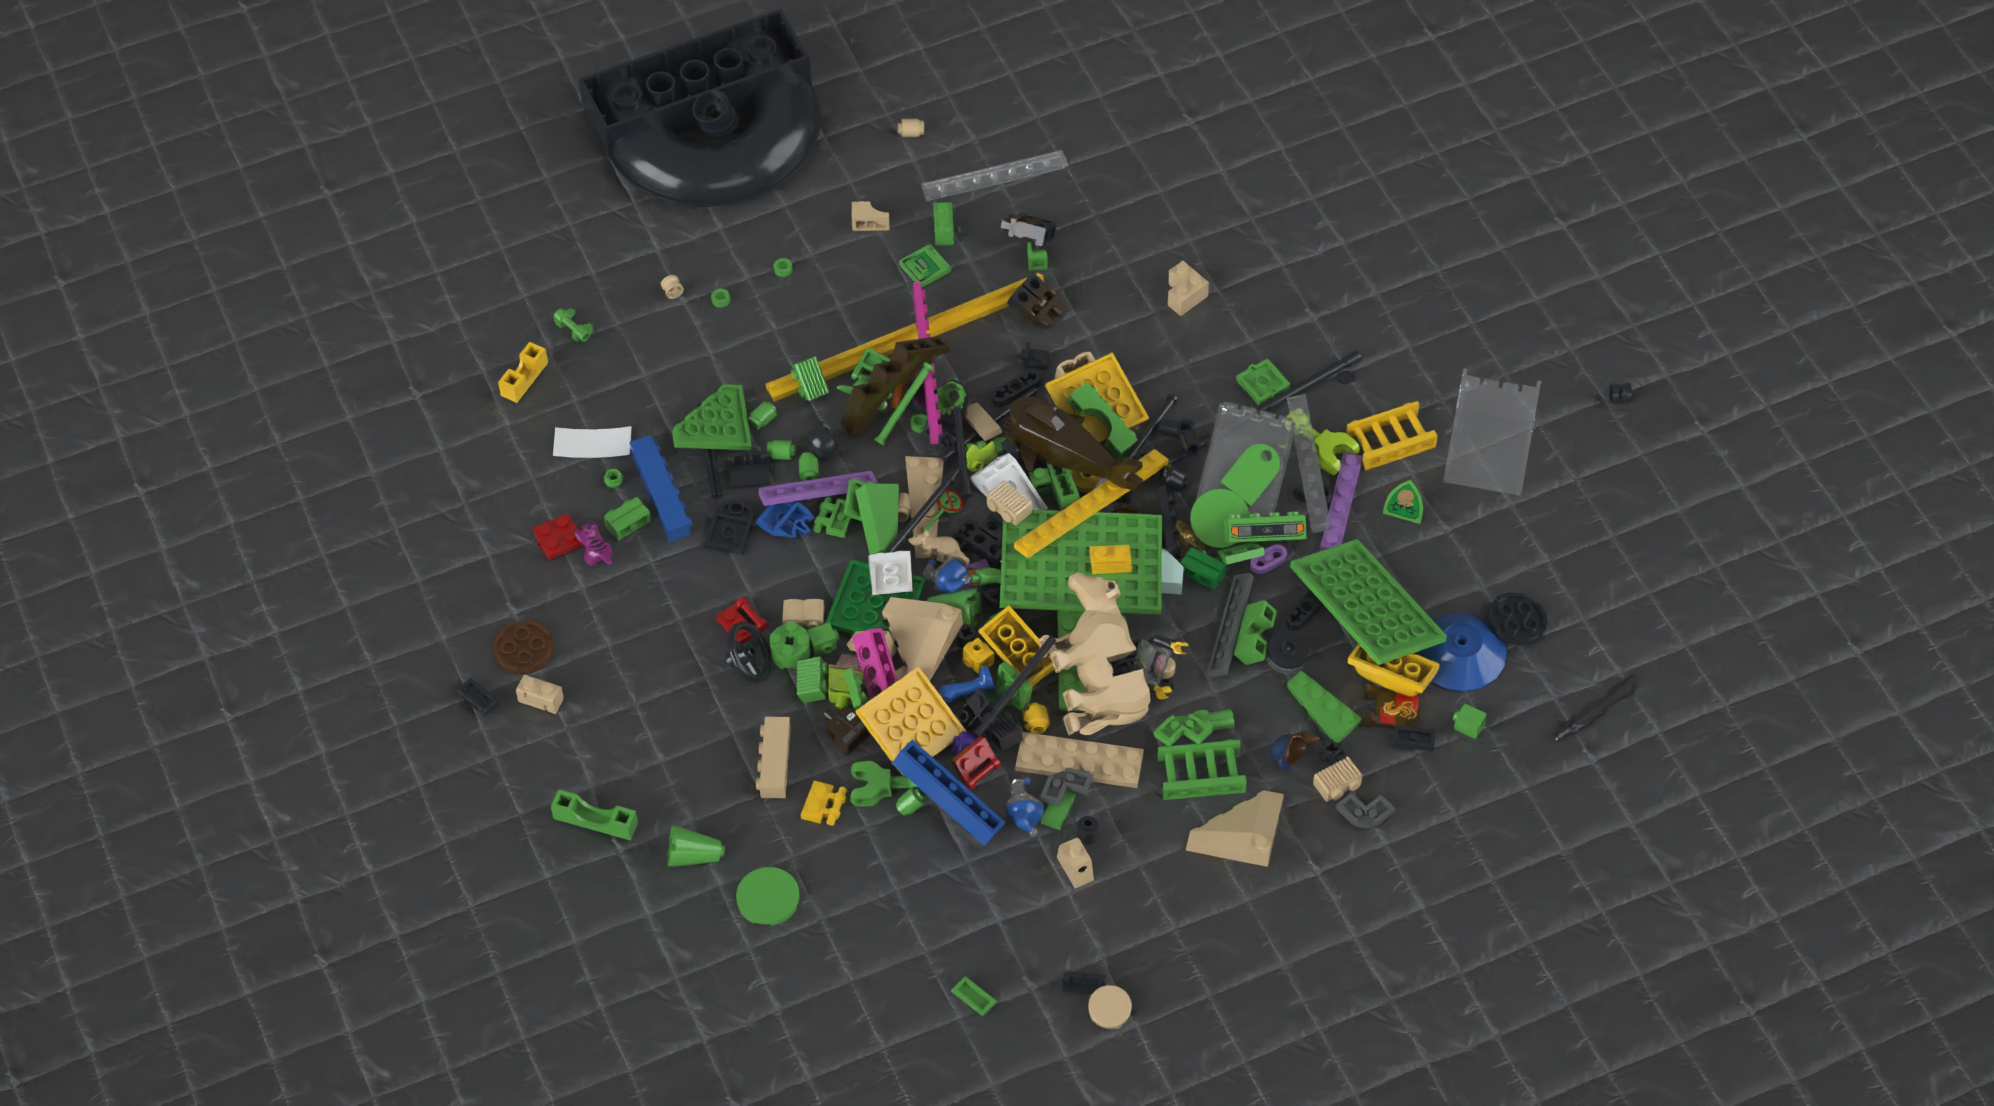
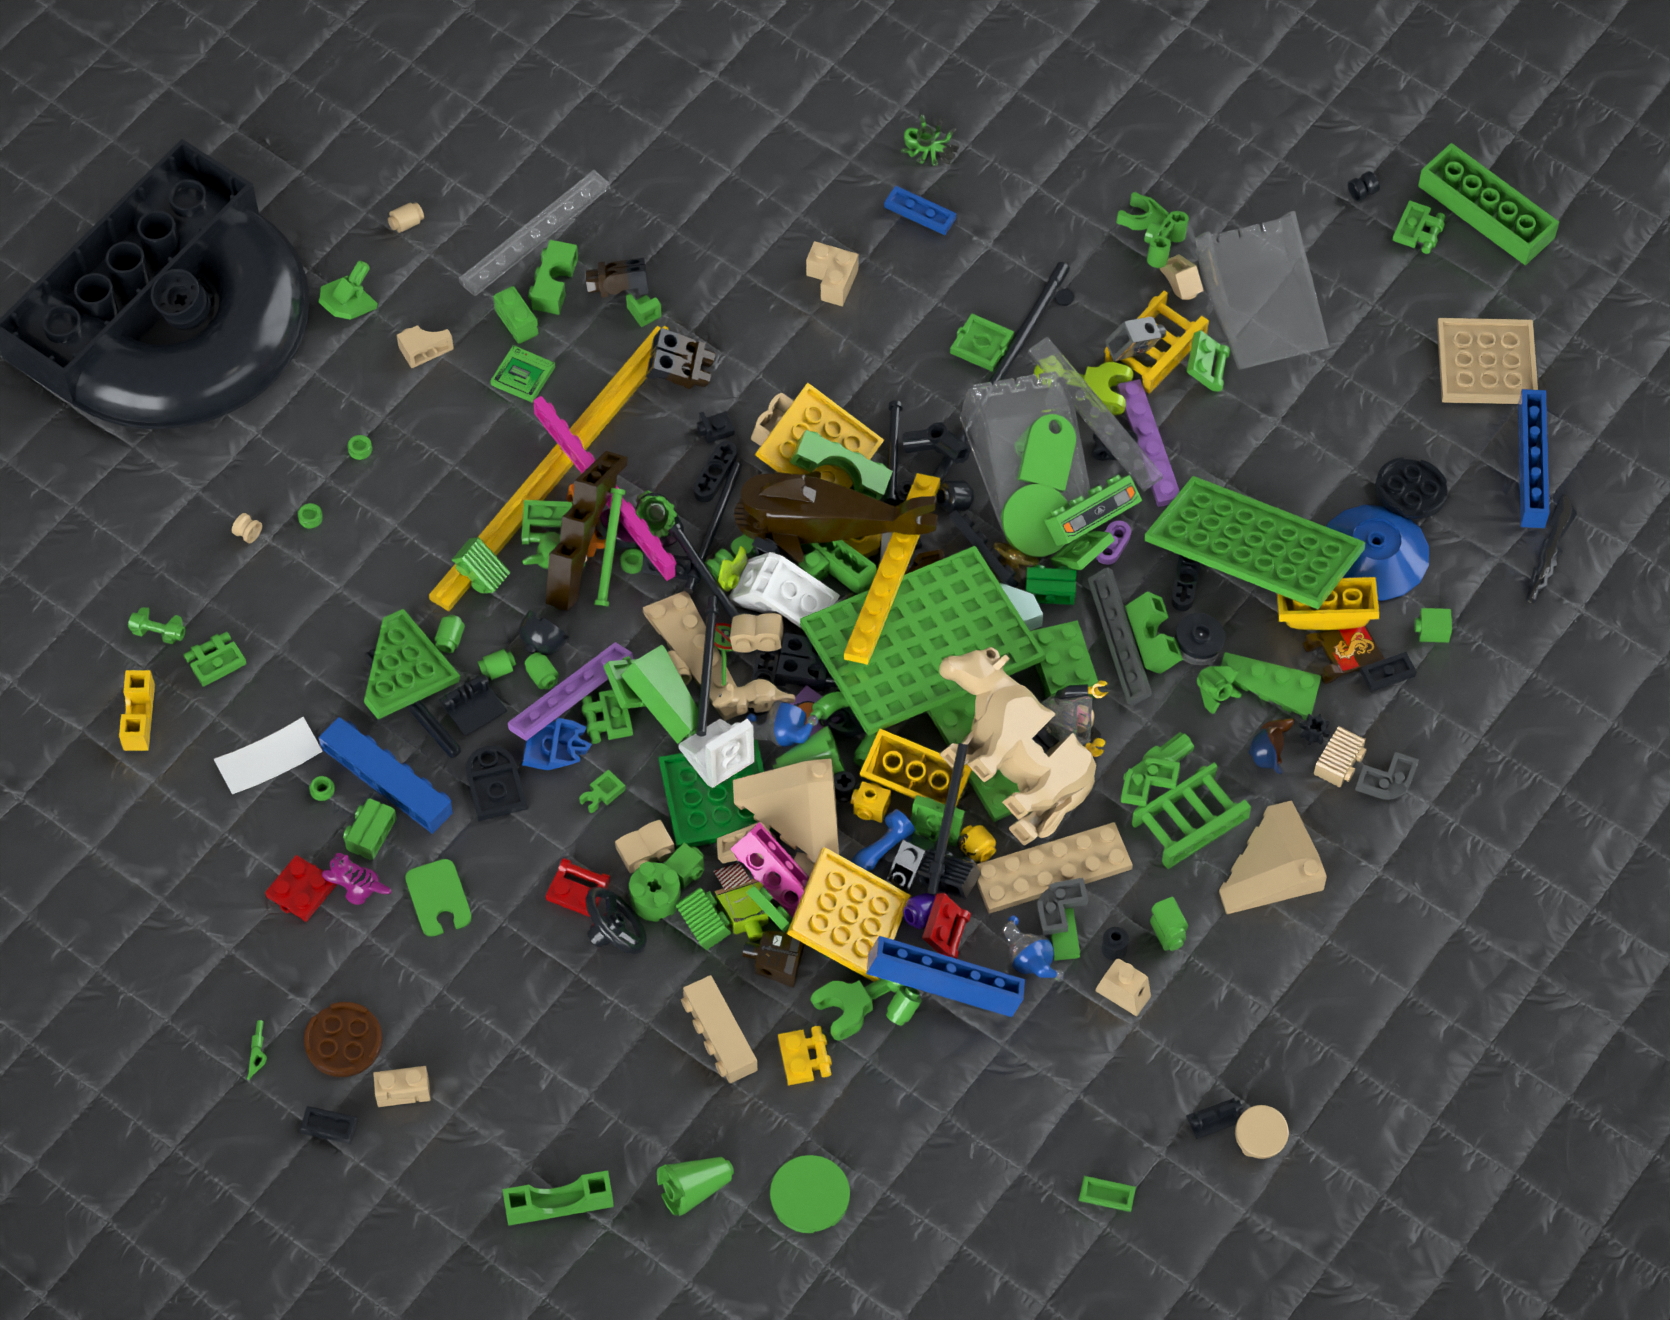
camera: 30 degrees left, 5 degrees up
(461, 629) = (257, 1041): none -> bright green hand
(597, 362) = (218, 663): none -> bright green plate
(645, 579) = (436, 890): none -> bright green piece
(801, 564) = (604, 789): none -> bright green plate
(836, 163) = (346, 296): none -> bright green piece
(969, 506) = (757, 632): none -> tan brick
(982, 422) = (708, 528): tan tile -> none
(996, 200) = (556, 260): none -> bright green arch
(1009, 503) = (806, 610): tan brick -> none
(1110, 559) = (955, 623): yellow plate -> none
(1133, 833) = (1169, 924): none -> bright green brick
(1179, 620) = (1065, 658): none -> bright green brick
(1277, 273) = (920, 210): none -> blue plate
(1278, 690) = (1216, 685): none -> bright green brick
(1311, 226) = (924, 140): none -> animal
(1371, 422) = (1142, 335): none -> dark grey torso
(1405, 503) = (1220, 412): shield -> none
(1416, 459) = (1202, 358): none -> bright green plate
(1439, 398) = (1183, 277): none -> tan arch
(1443, 358) = (1160, 227): none -> bright green piece
(1621, 637) = (1533, 458): none -> blue brick
(1634, 555) = (1486, 360): none -> tan plate
(1640, 435) = (1412, 224): none -> bright green plate
(1707, 444) = (1488, 204): none -> bright green brick

